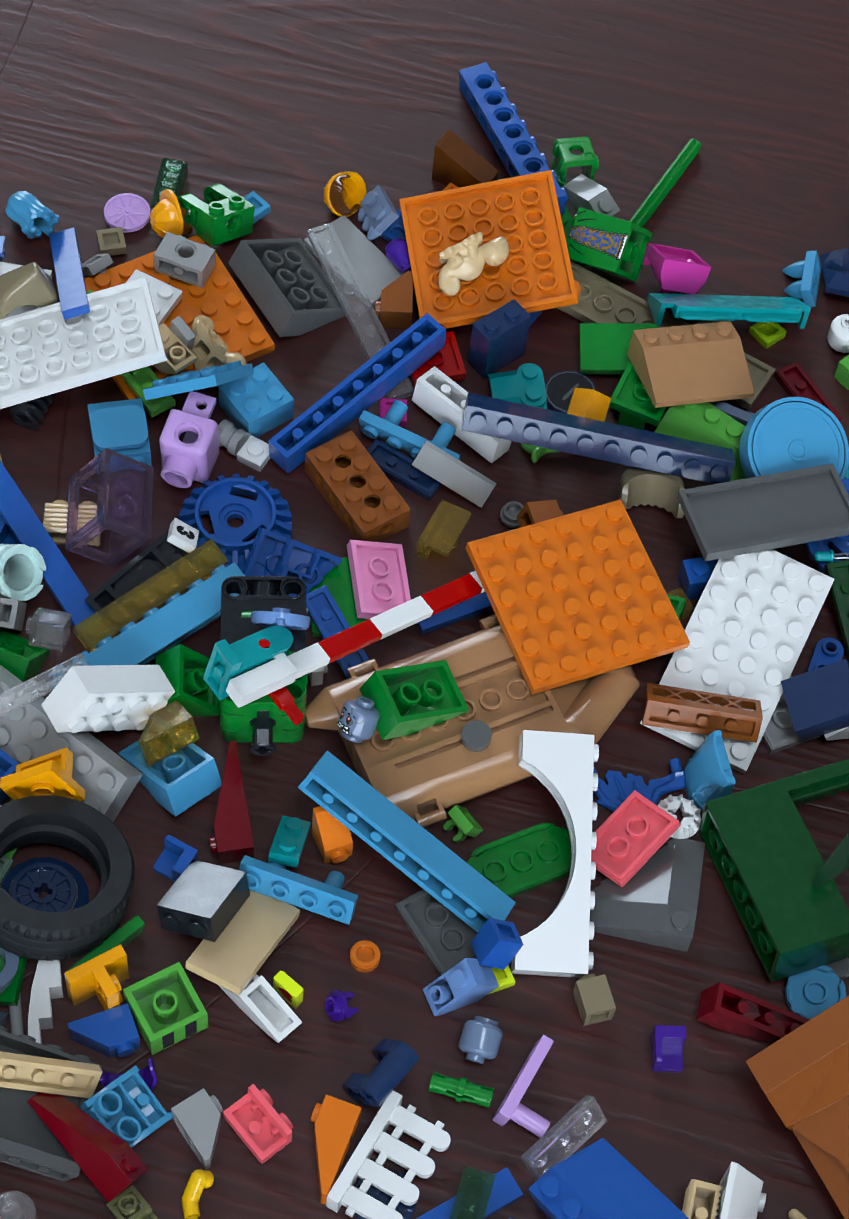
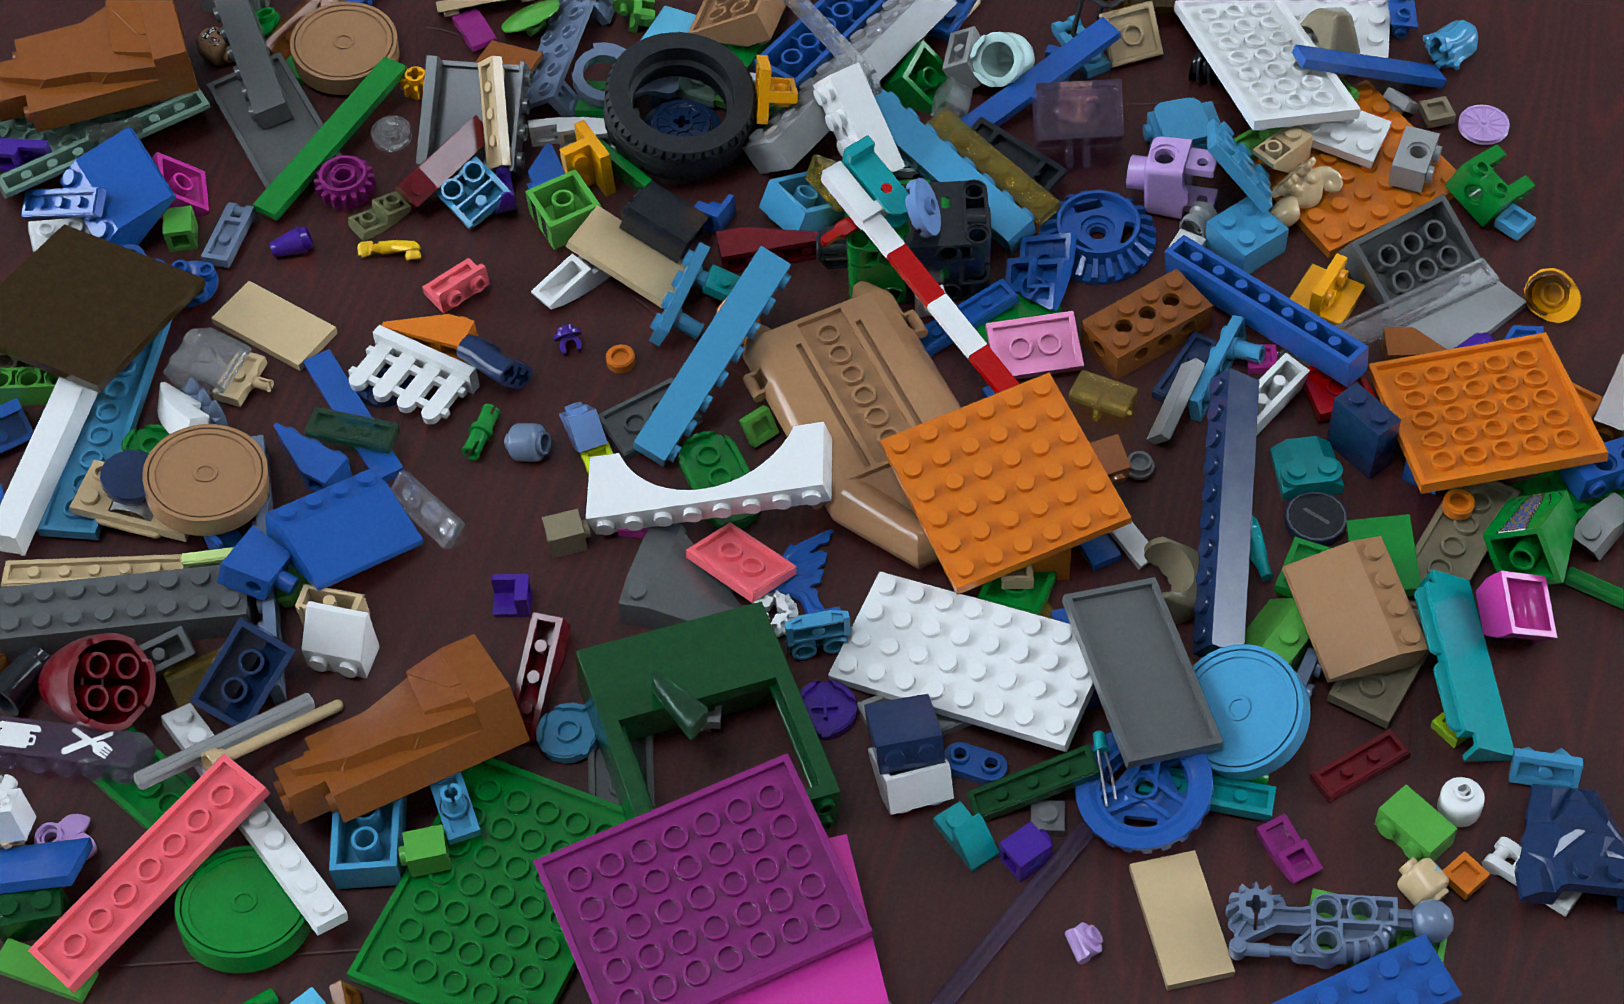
camera: 100 degrees right, 5 degrees down
(168, 216) = (1471, 142): light orange piece -> none
(172, 170) = (1538, 153): clear green slope -> none
(182, 535) = (1062, 180): white tile -> none
(183, 332) = (1299, 150): light grey tile -> none
(200, 1124) = (456, 244): light grey slope -> none
(288, 989) = (584, 298): neon yellow tile -> none
(323, 354) = (1329, 291): none -> light orange bracket
(358, 719) = (836, 298): sand blue head -> none
(376, 212) = (1524, 320): sand blue plate -> none
(413, 697) = (865, 342): green slope -> none
(467, 260) = (1454, 380): tan animal -> none
(476, 736) = (829, 400): dark grey tile -> none
(496, 943) = (615, 438): blue panel -> none
(511, 1106) = (461, 467): lavender piece -> none
(589, 404) = (1282, 519): light orange brick -> none
(701, 713) = (873, 614): dark orange fence -> none
(772, 767) = (830, 708): none -> dark purple tile

